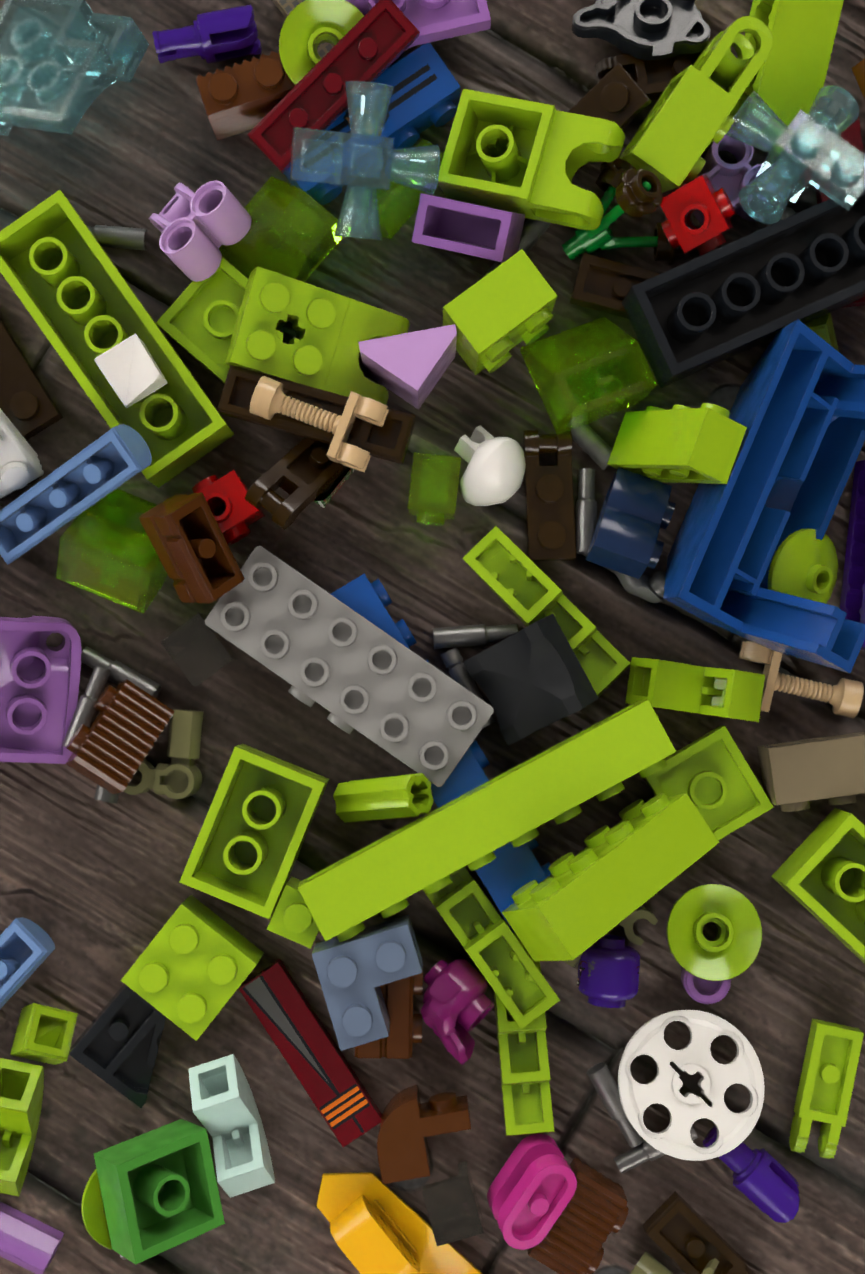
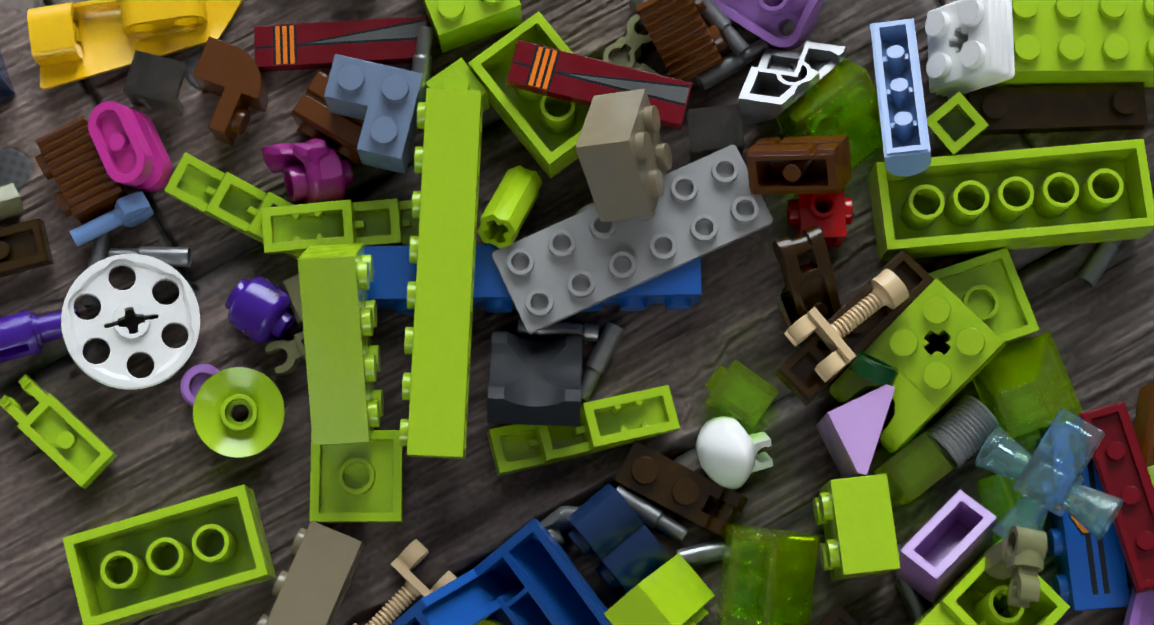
camera: 120 degrees right, 10 degrees down
(64, 426) = (956, 124): none -> lime brick
(110, 612) = (784, 78): none -> flat silver slope
(131, 370) = (972, 196): white slope -> none
(198, 225) = (1069, 322): lavender piece -> none
(221, 781) = (581, 77): none -> dark red tile
(280, 716) = (623, 155): none -> dark tan brick
(284, 967) = (422, 59): none -> flat silver pin
(350, 371) = (874, 369): none -> dark green tile
(352, 272) = (962, 430): none -> light grey piece
(414, 295) = (914, 469): none -> clear neon green brick
(454, 135) = (1022, 559): none -> olive bar
(591, 1154) = (128, 211): none -> medium blue bar
(696, 688) = (446, 514): lime brick -> none

